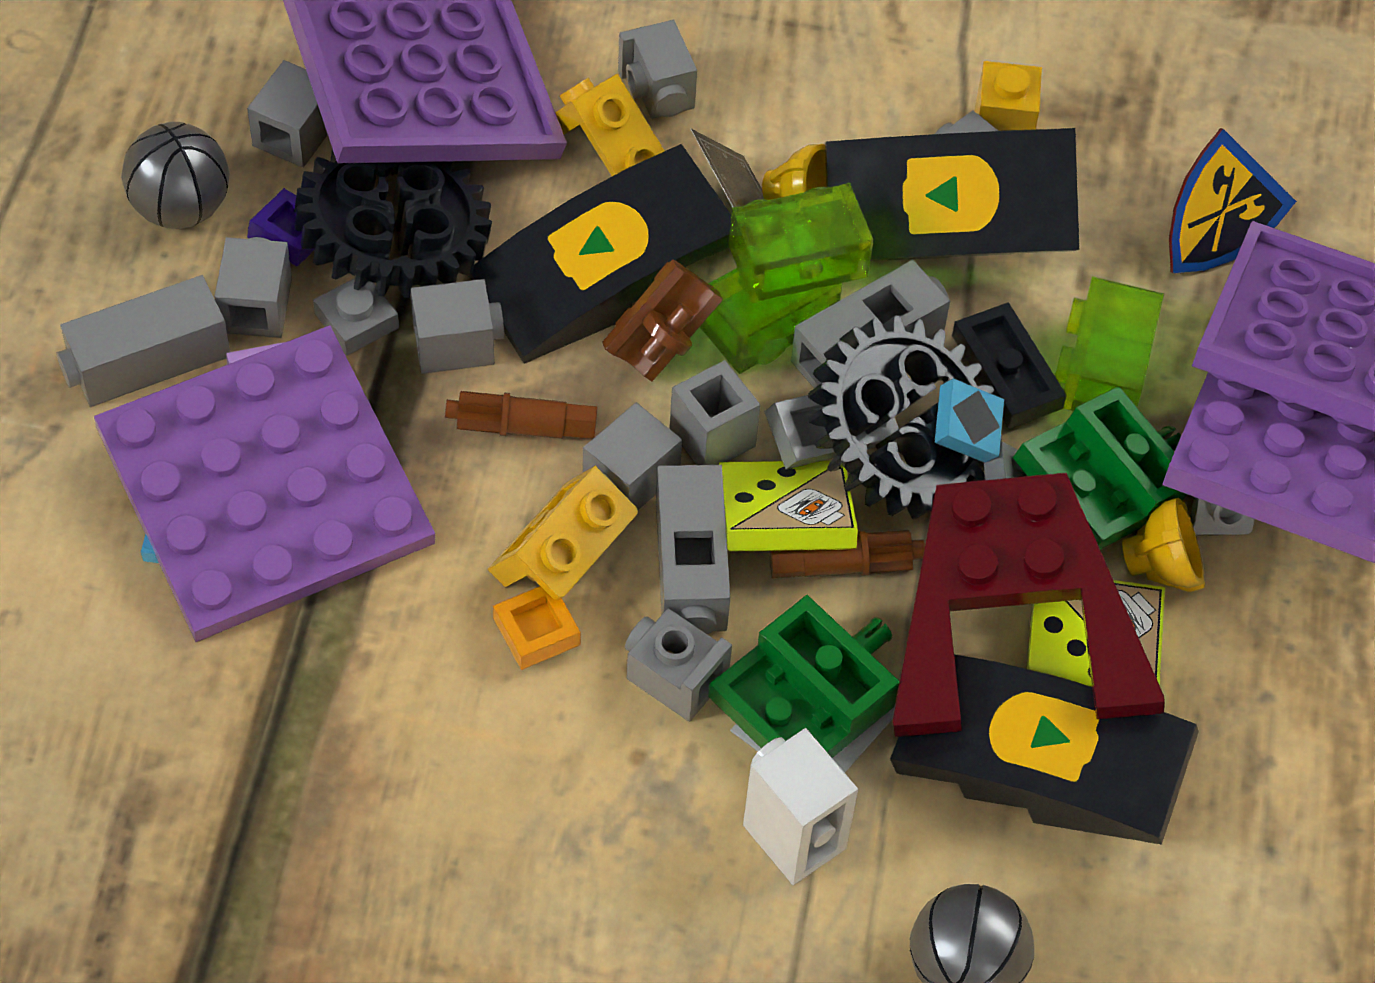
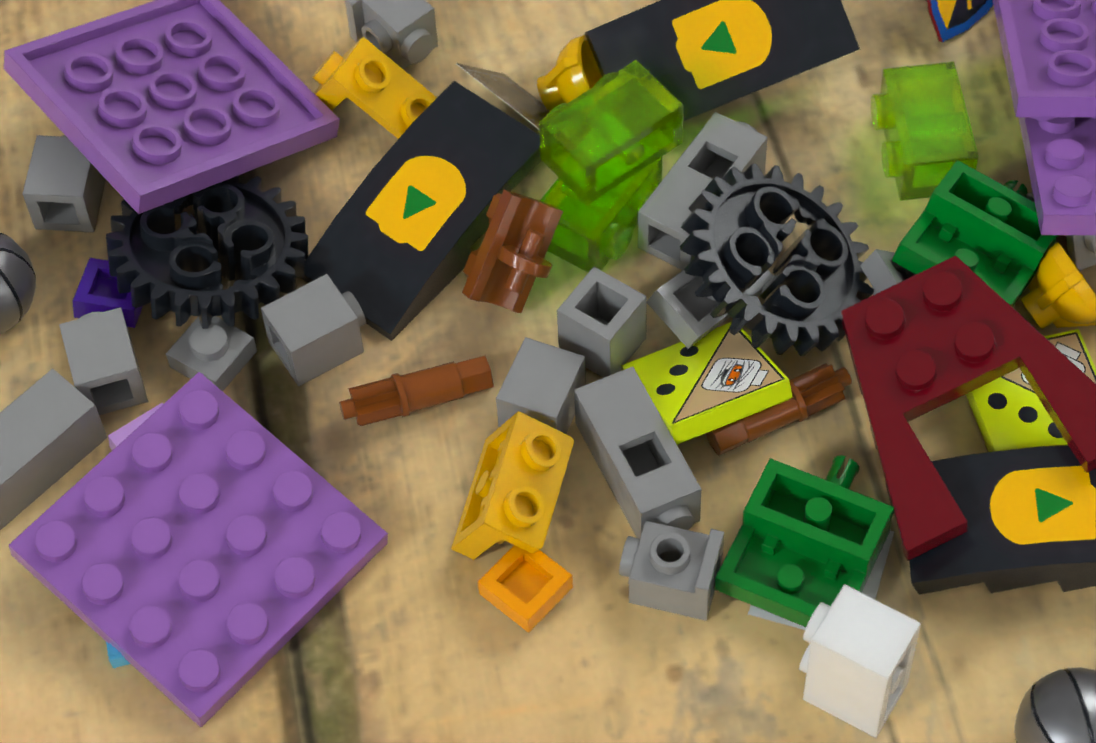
camera: 15 degrees left, 0 degrees up
(969, 420) = (840, 240): medium azure tile -> none
(1010, 364) = (846, 174): black plate -> none

